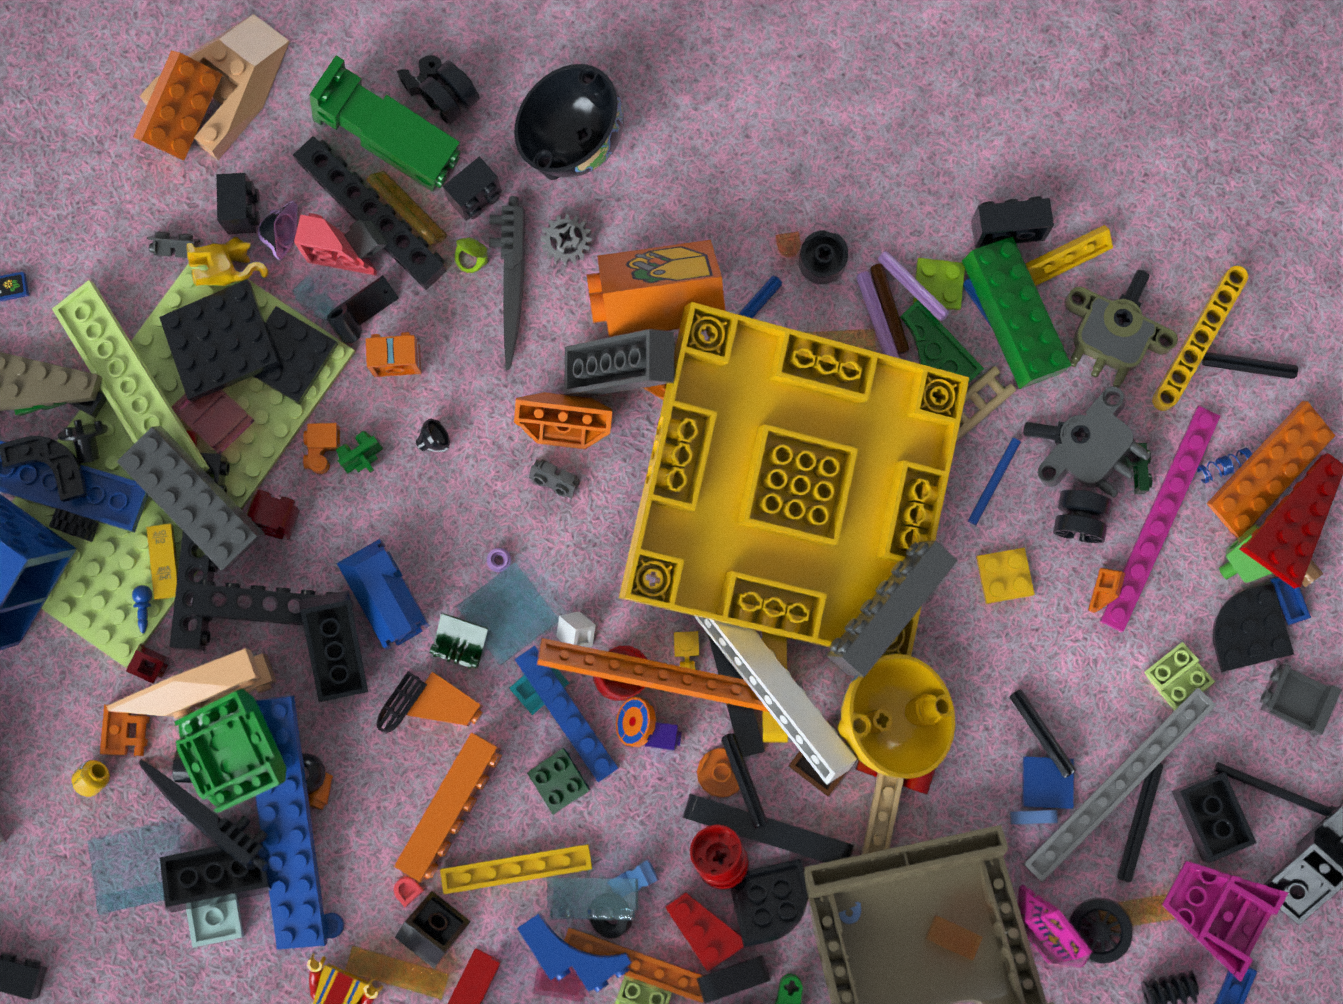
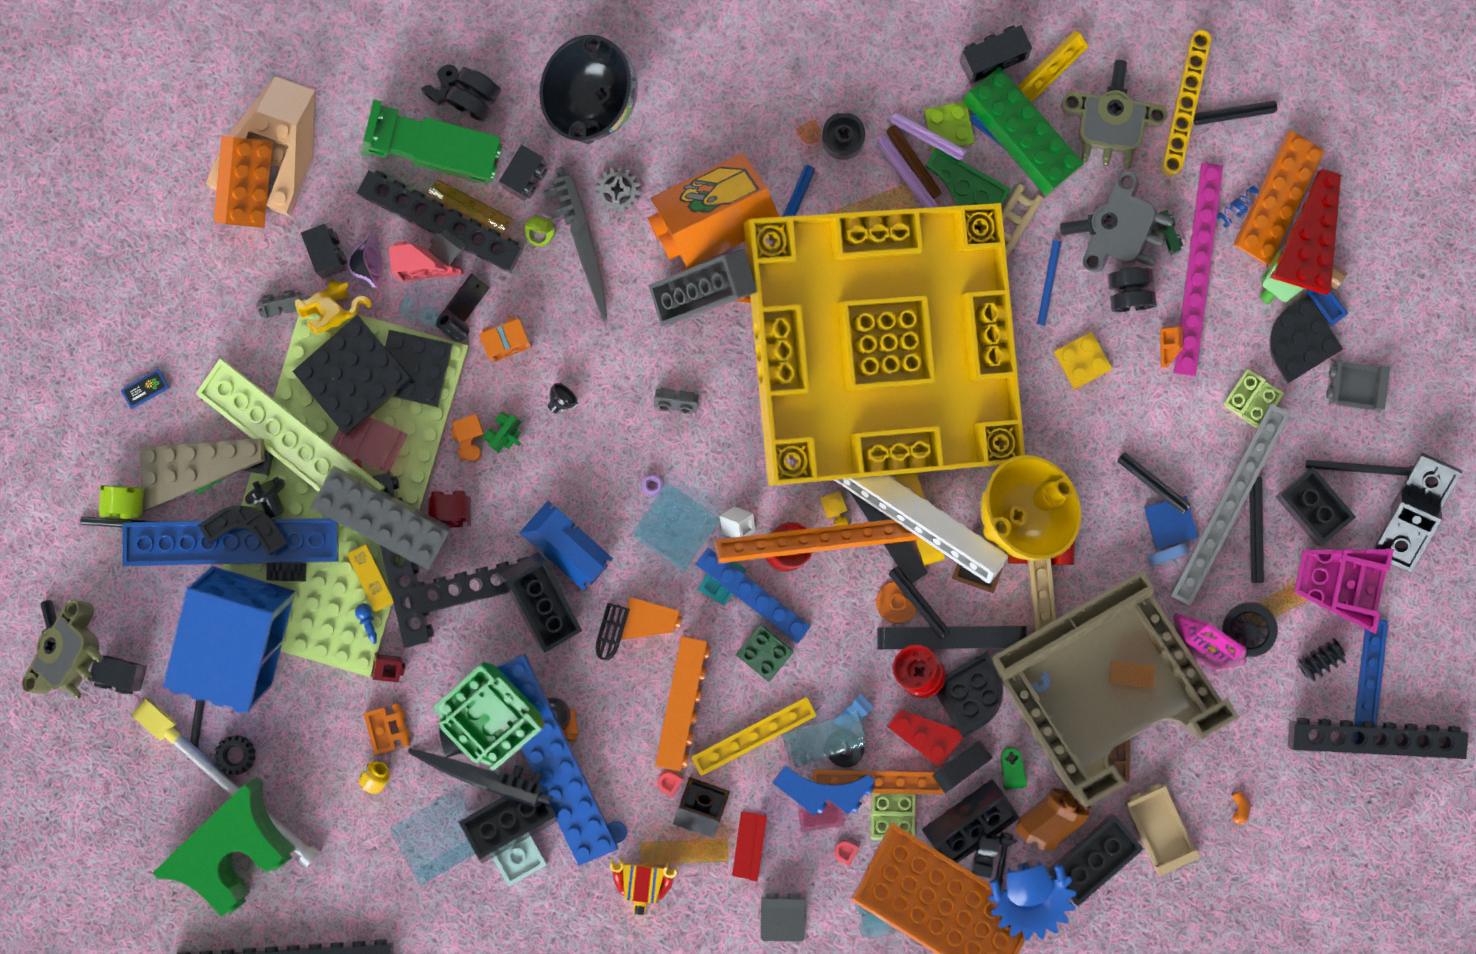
camera: 15 degrees left, 5 degrees up
(201, 686) = (444, 672): light nougat wedge -> none
(459, 641) = (643, 563): hinge -> none
(563, 419) = (667, 347): orange wedge -> none
(635, 722) = (813, 583): orange tile -> none
(664, 737) = (839, 587): dark purple brick -> none
(891, 607) = (996, 420): dark grey brick -> none

